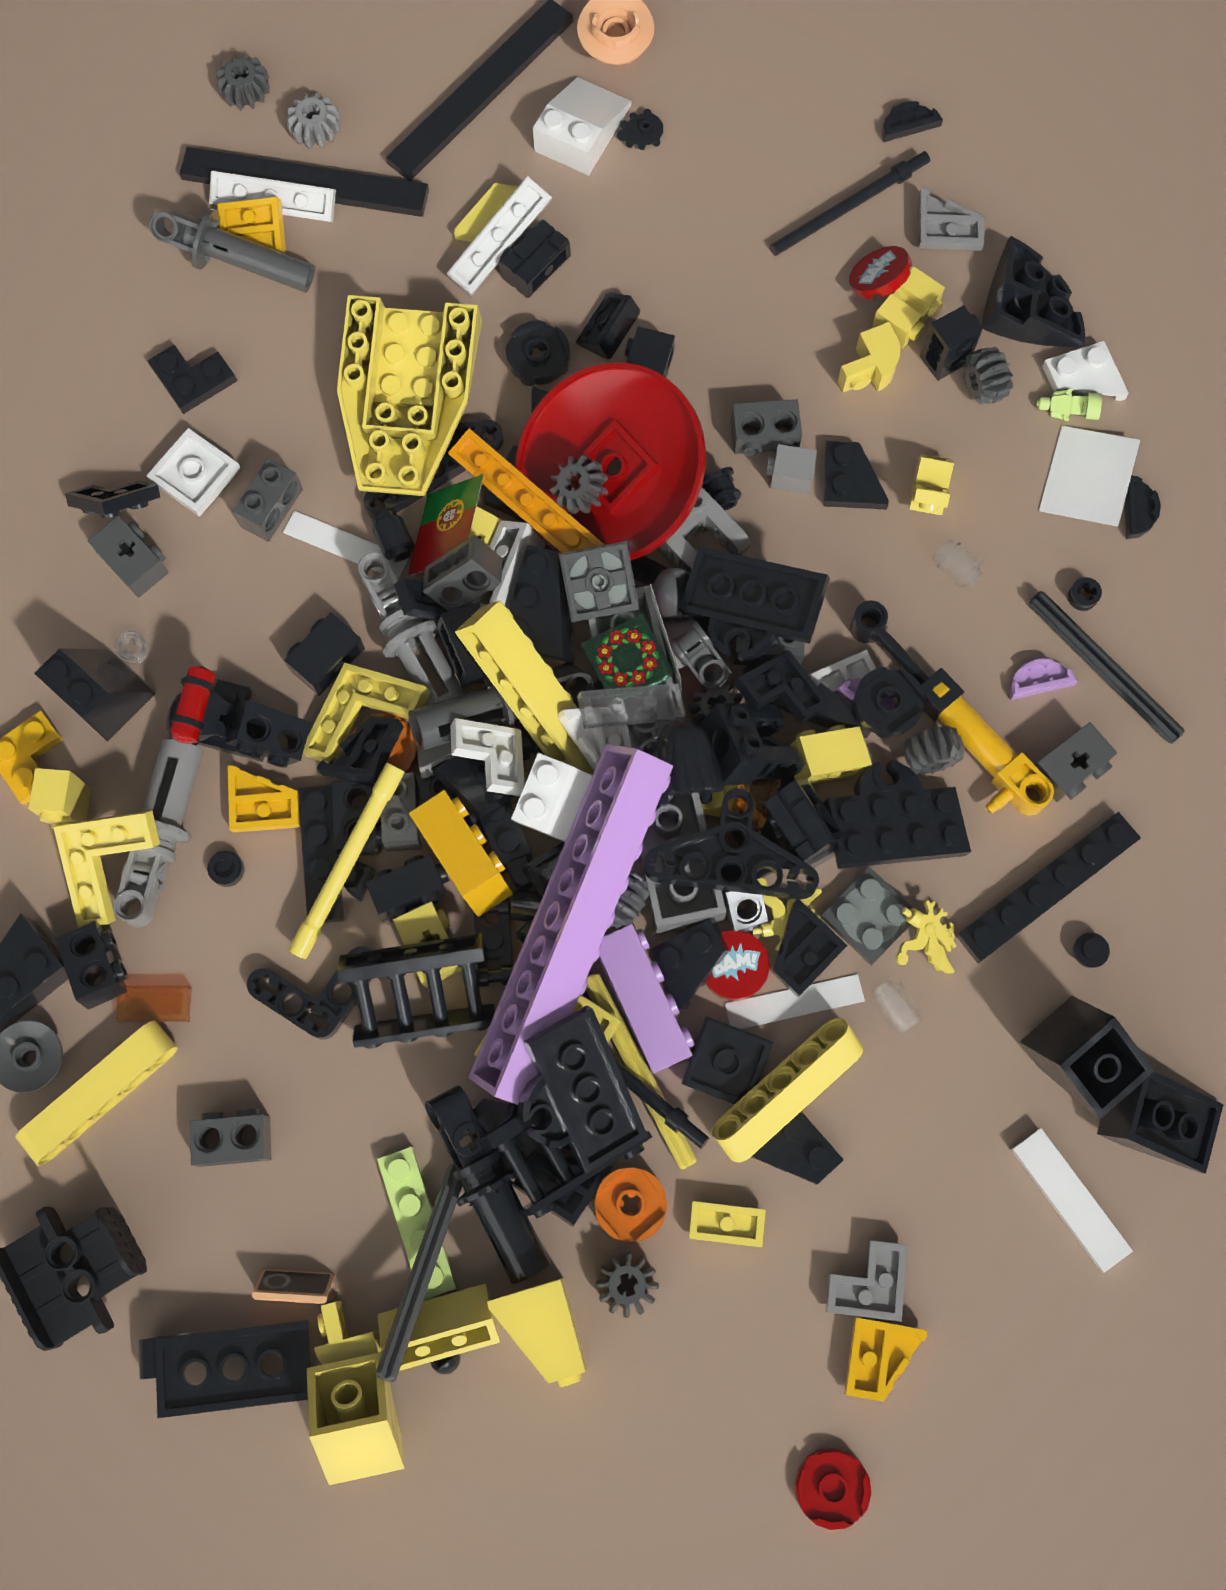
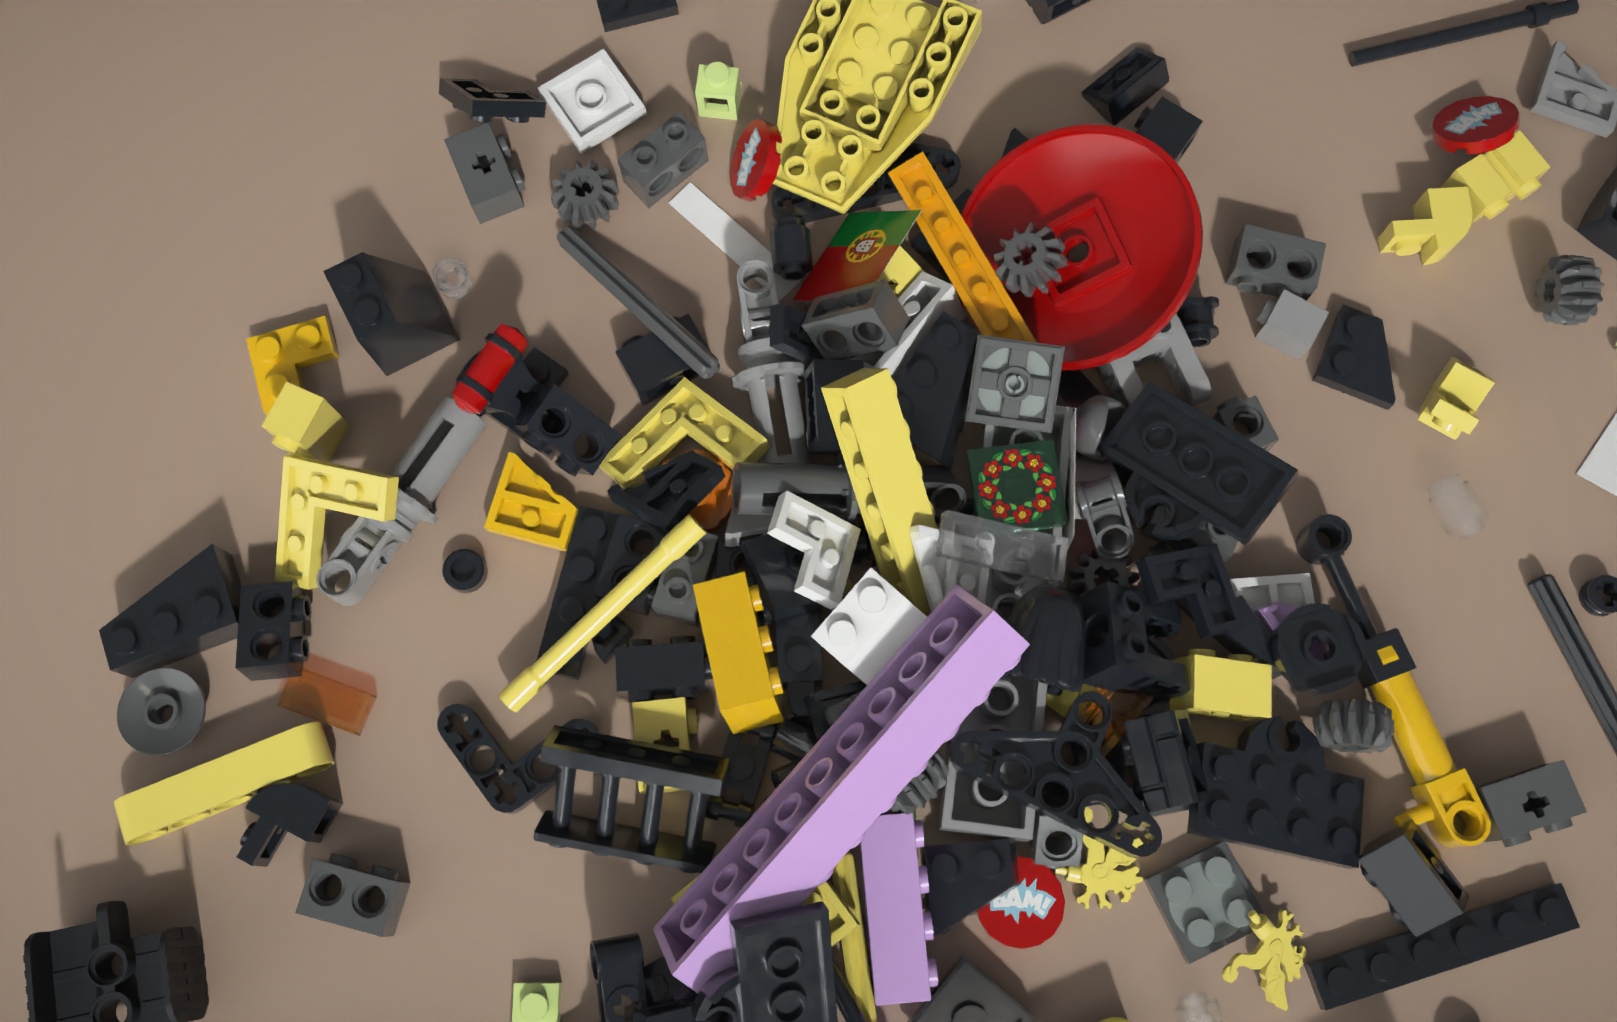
camera: 20 degrees right, 0 degrees up
(149, 1095) = (283, 810): none -> black brick
(207, 539) = (581, 182): none -> dark grey gear
(288, 616) = (639, 303): none -> dark grey axle
(291, 425) = (718, 82): none -> yellowish green brick
(340, 477) = (755, 160): none -> red tile
(532, 369) = (1029, 111): black plate -> none
(783, 546) = (1252, 415): none -> dark grey brick
(787, 1005) = (1078, 974): white sticker -> none
(805, 949) = (1112, 916): black wing -> none
(950, 342) = (1537, 235): black brick -> none
(1011, 844) = (1413, 879): none -> black brick
(1040, 677) = (1514, 679): lavender tile -> none

